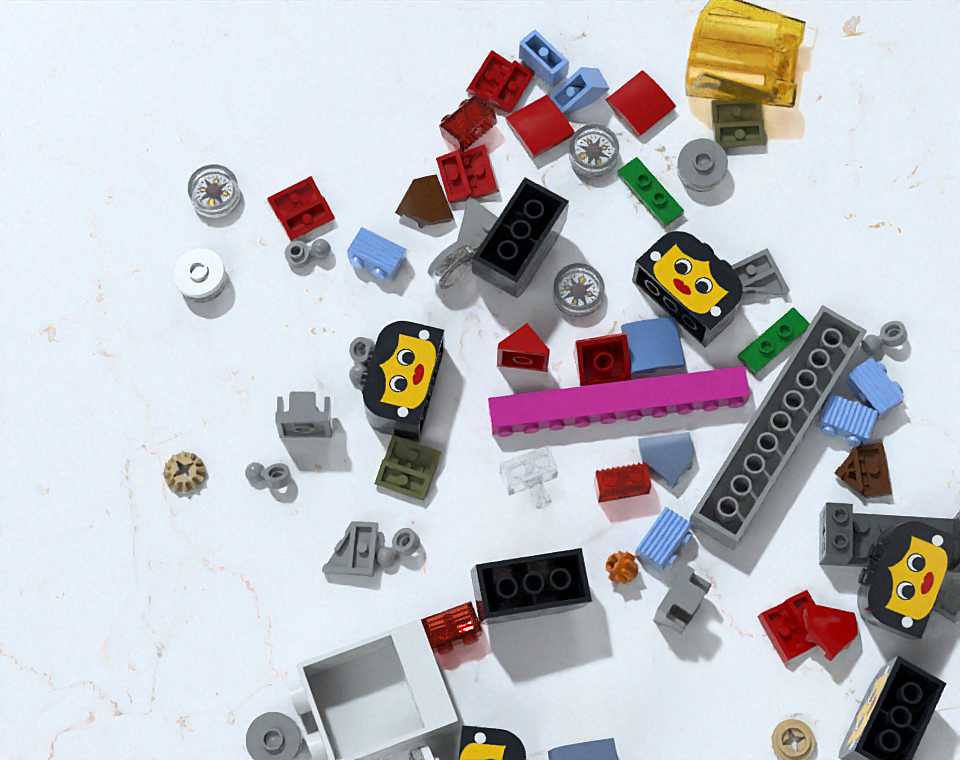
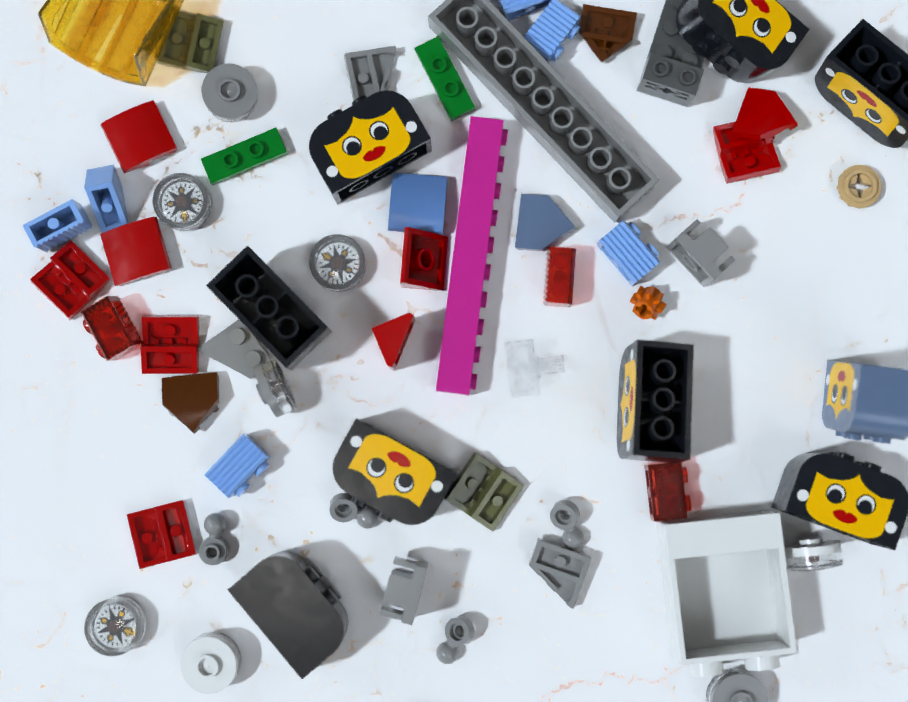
camera: 75 degrees left, 15 degrees up
(263, 328) = (293, 609): none -> black brick

